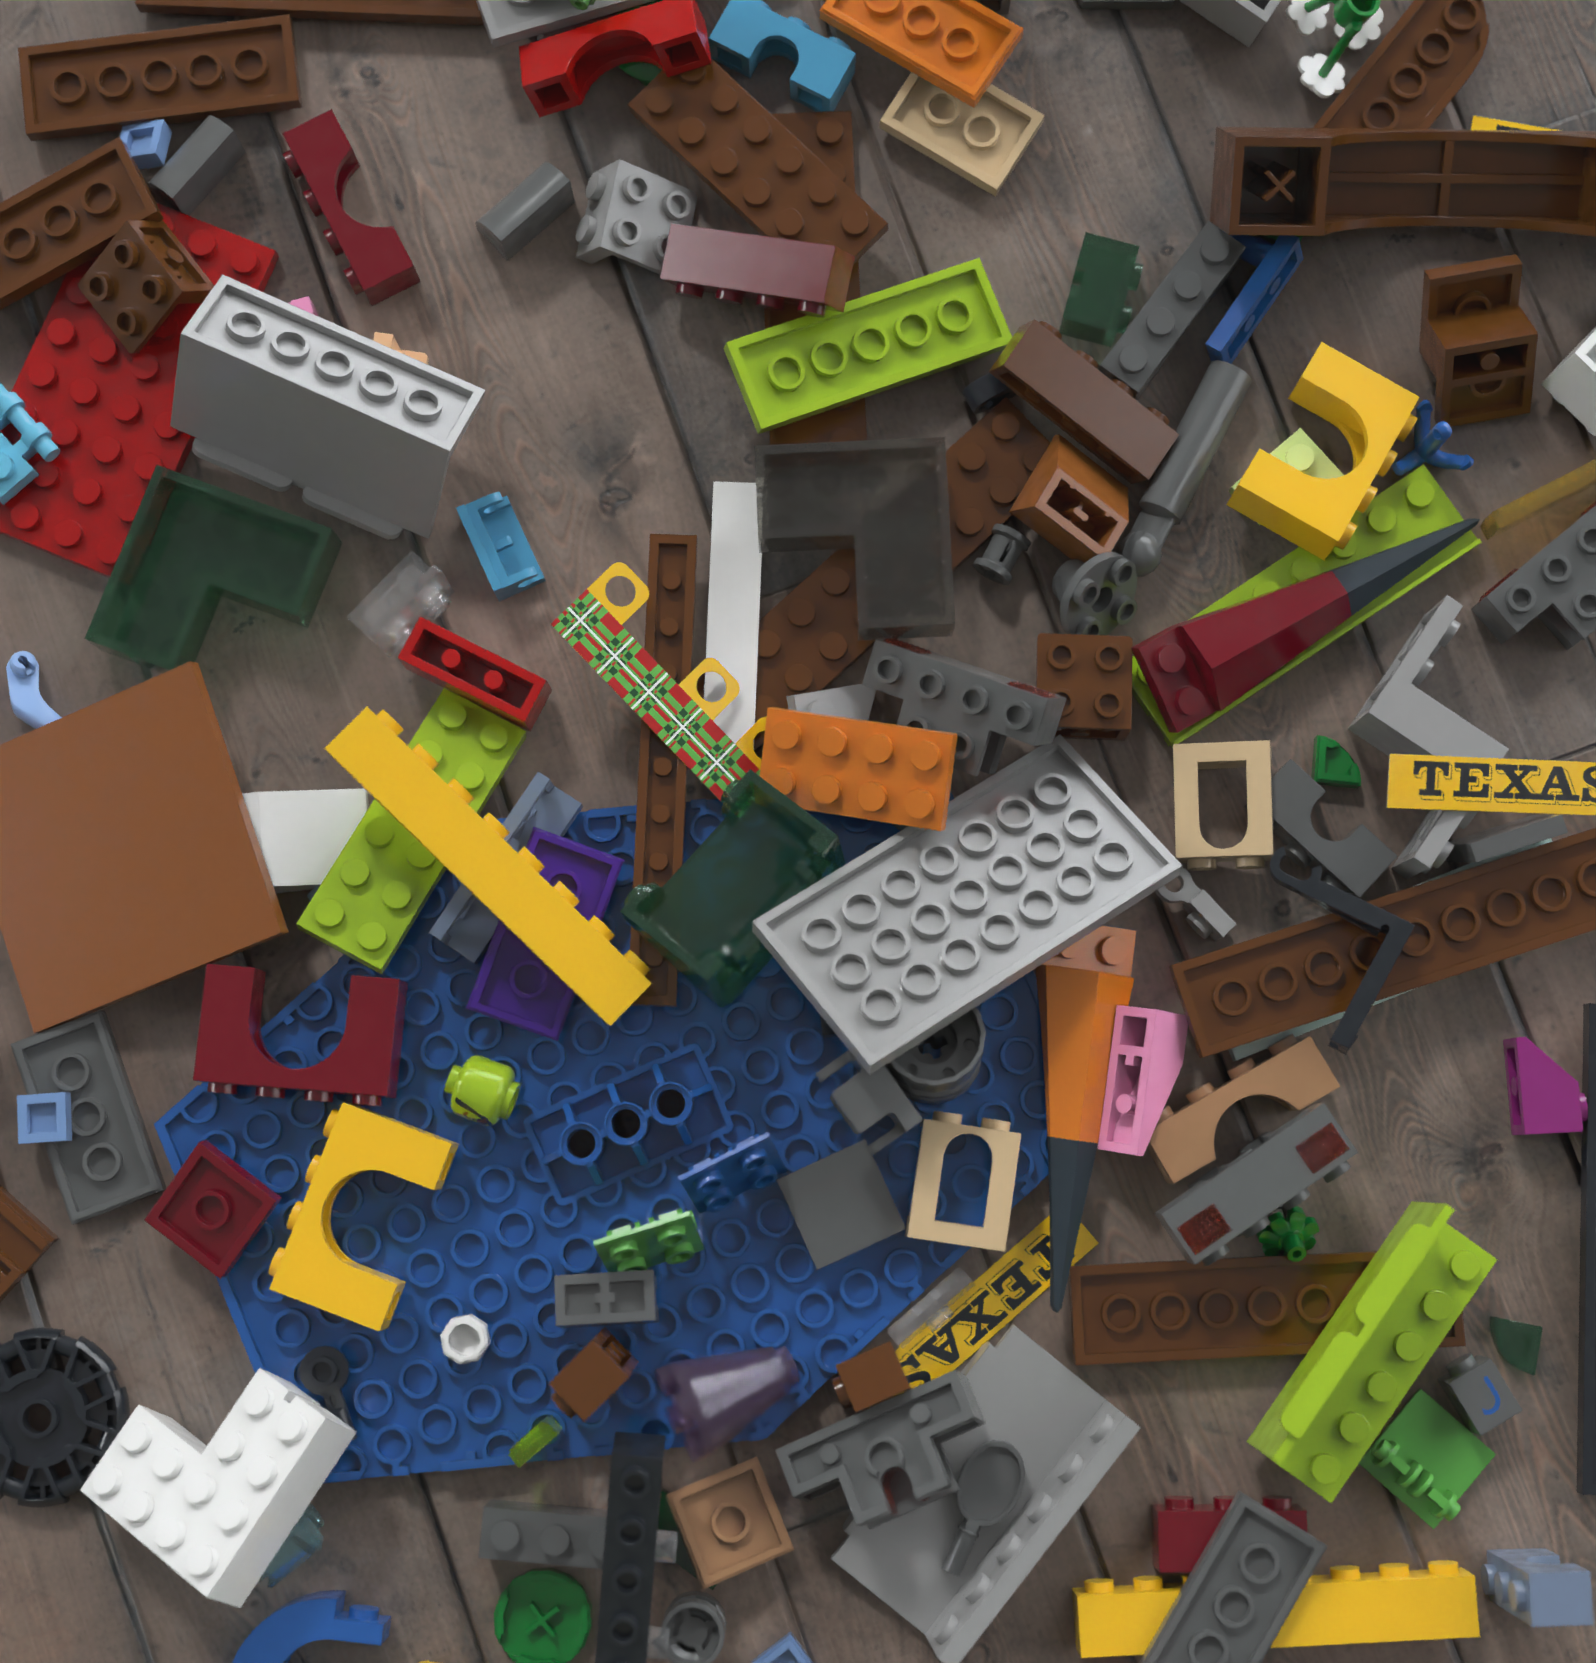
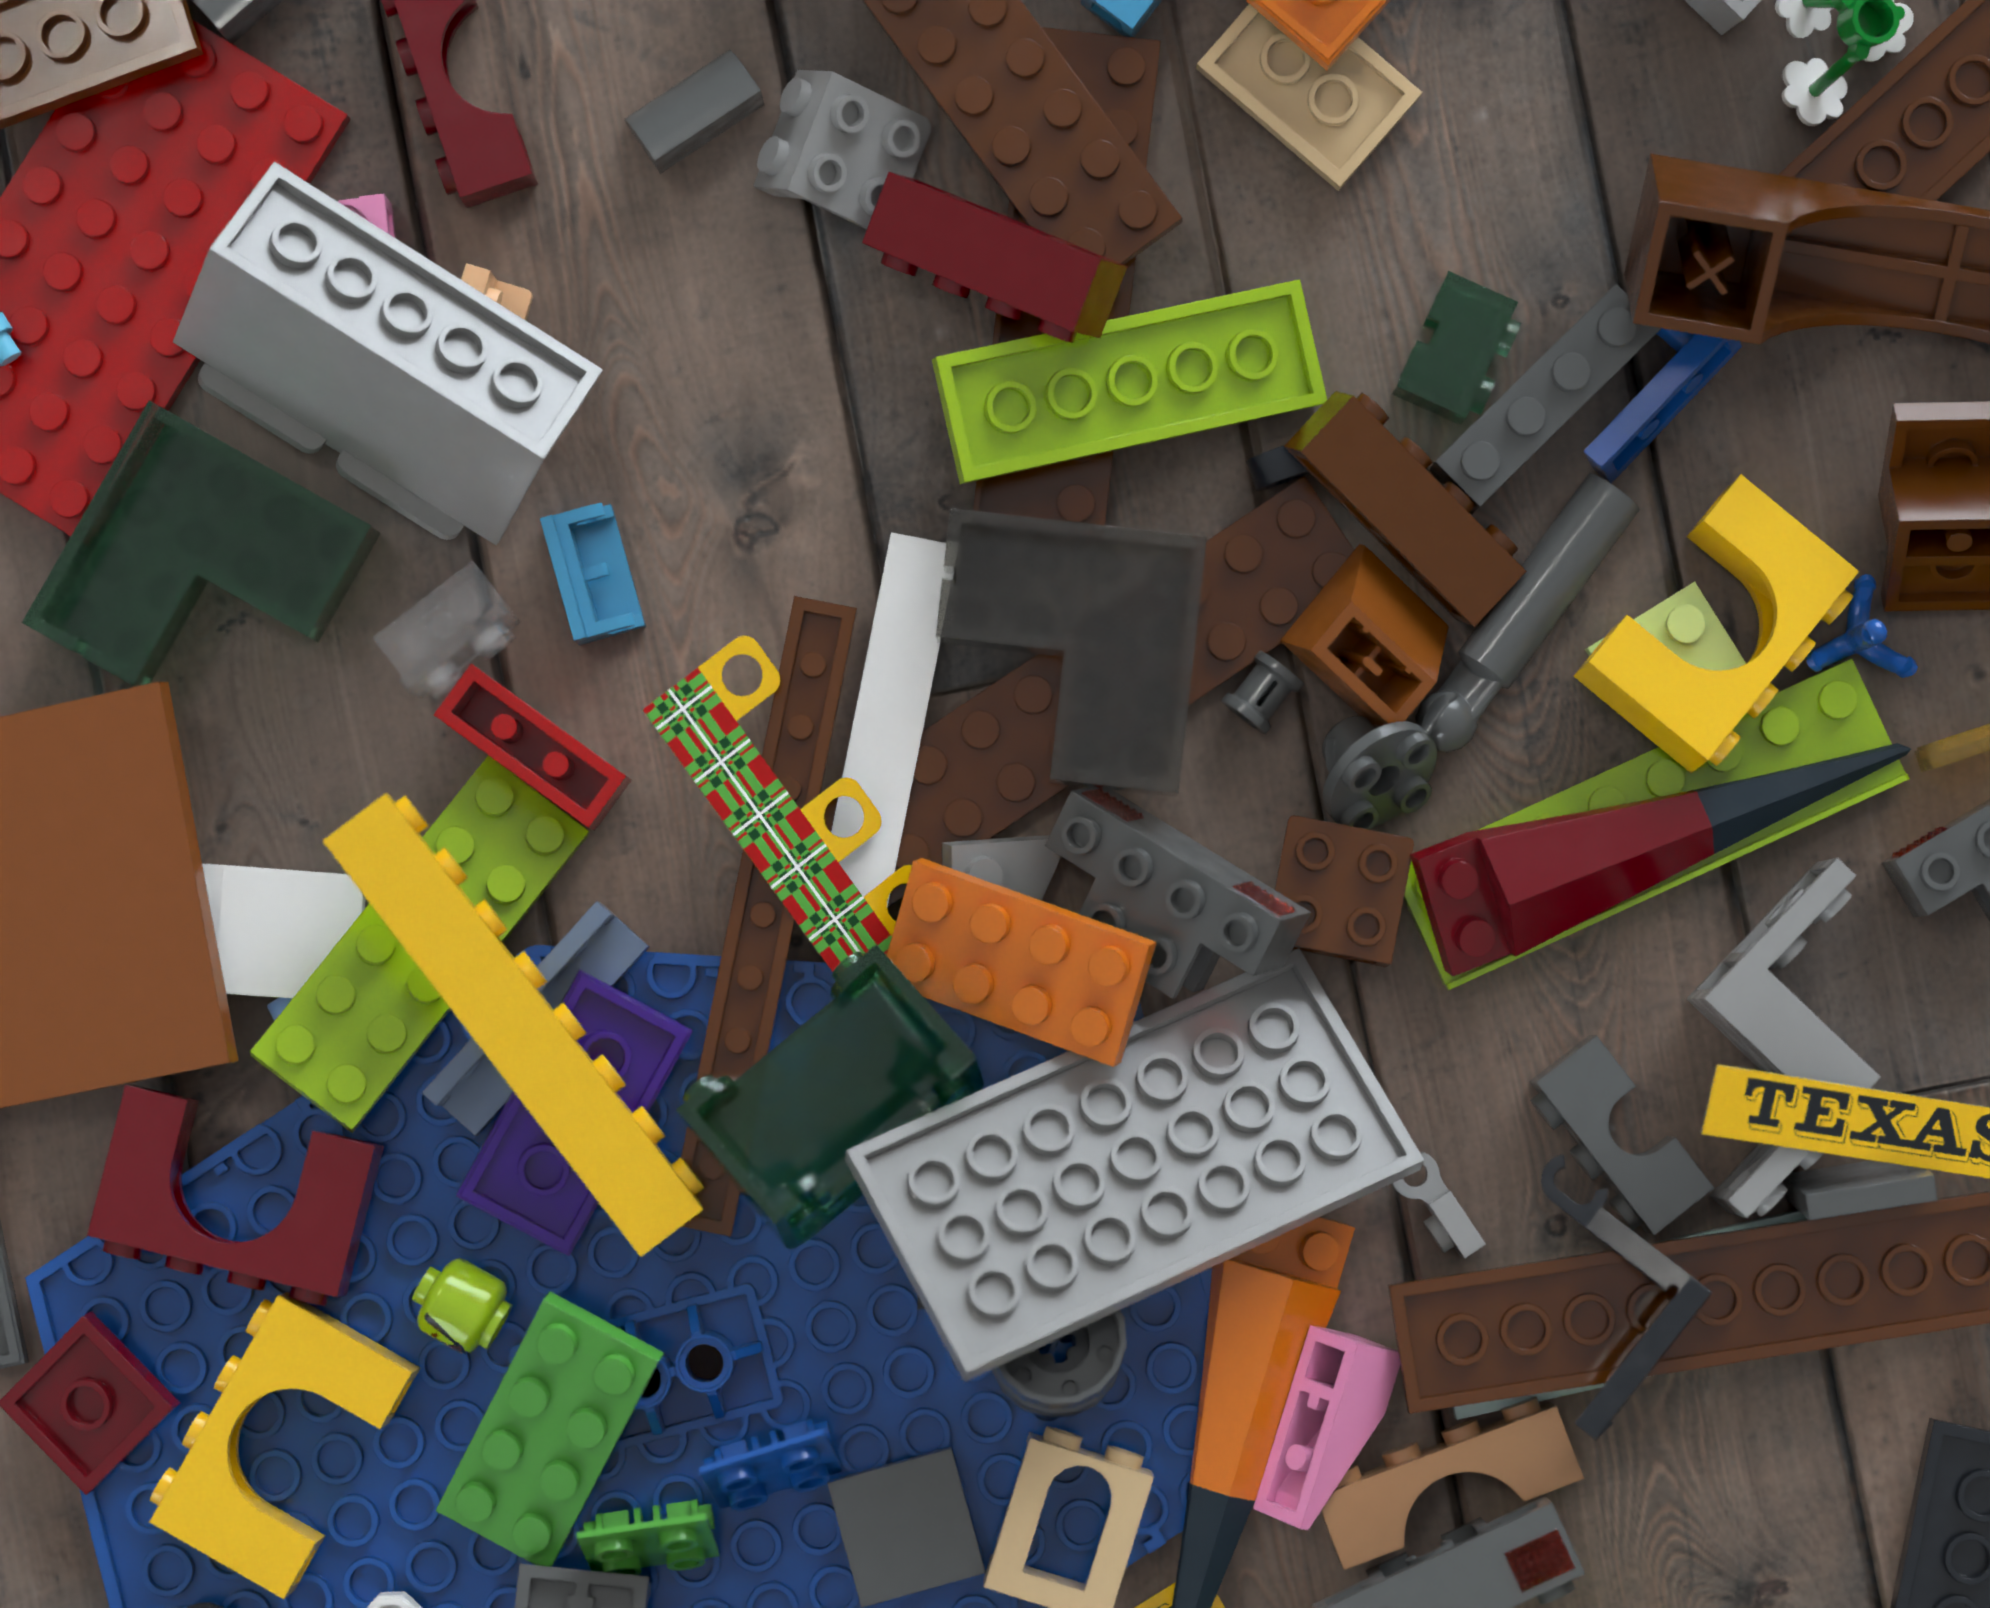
camera: 10 degrees right, 5 degrees up
(142, 281) = (165, 139): reddish brown bracket -> none
(561, 1171) = (549, 1431): none -> bright green plate
(870, 1098) = (963, 1408): dark grey panel -> none
(1258, 842) = (1537, 1128): tan panel -> none
(1333, 764) = (1657, 1046): green tile -> none
(1540, 1092) = (1848, 1528): magenta slope -> none

